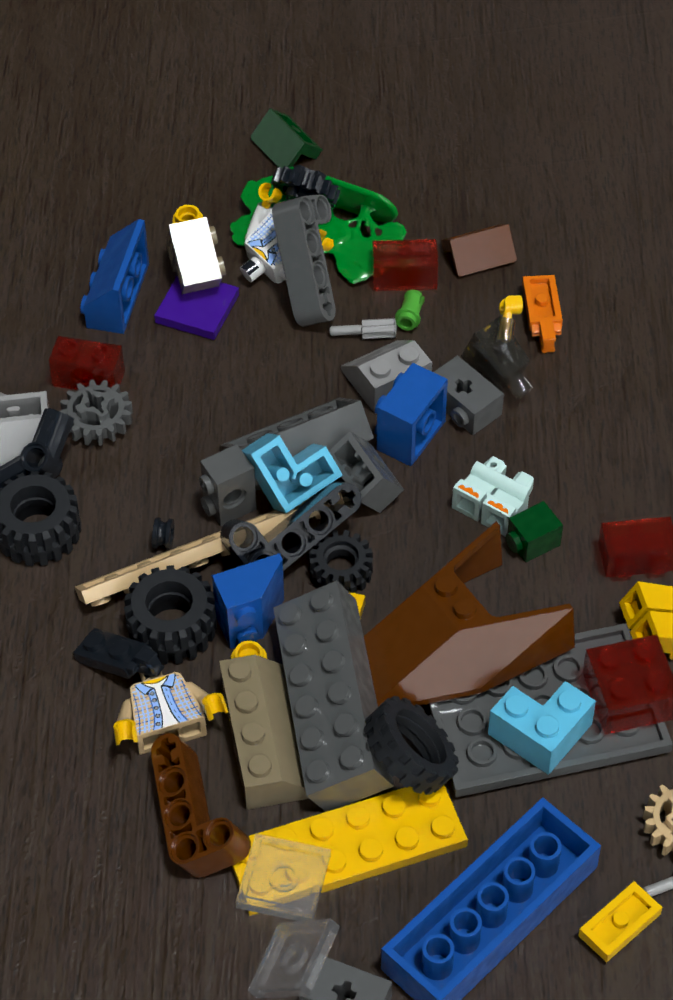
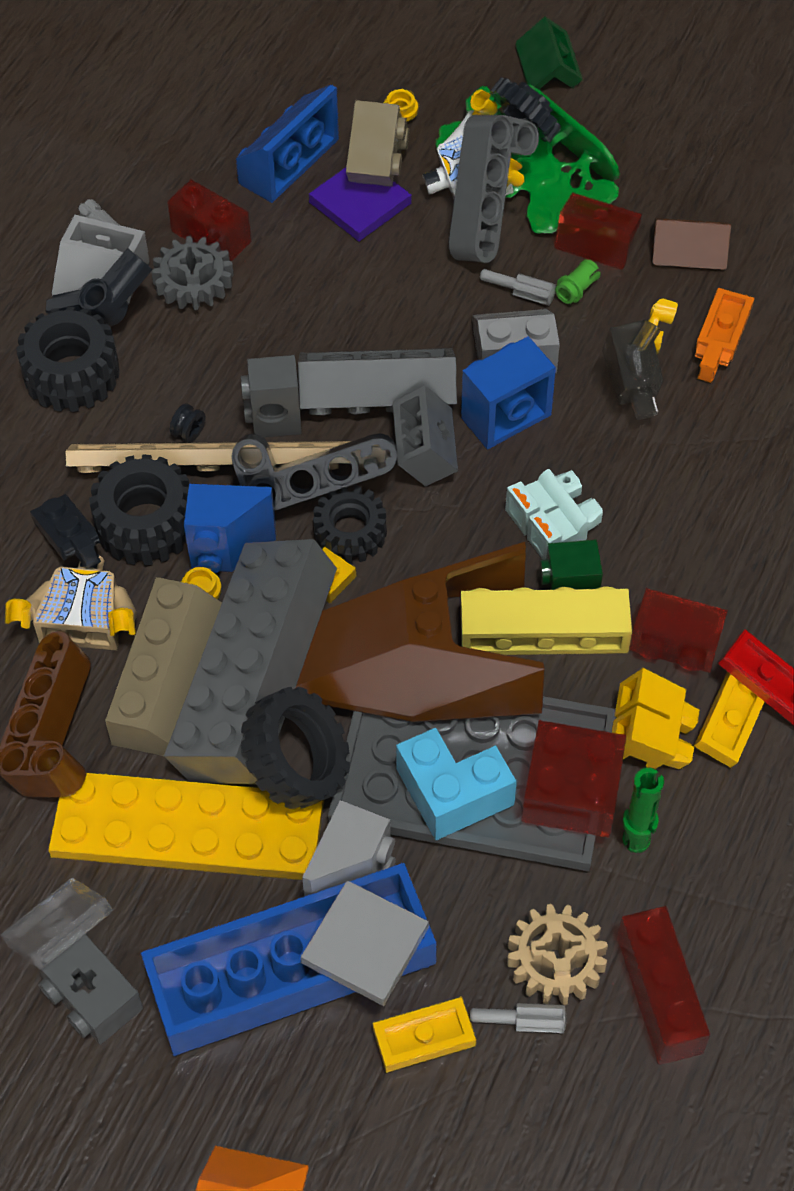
camera: 25 degrees right, 5 degrees up
(283, 878) = (95, 833): clear tile -> none
(290, 479) = (336, 415): medium azure brick -> none
(470, 397) = (584, 395): dark grey brick -> none
(496, 804) = (350, 848): none -> light grey slope
(541, 575) = (546, 621): none -> light yellow brick
(550, 866) = (365, 942): none -> light grey tile

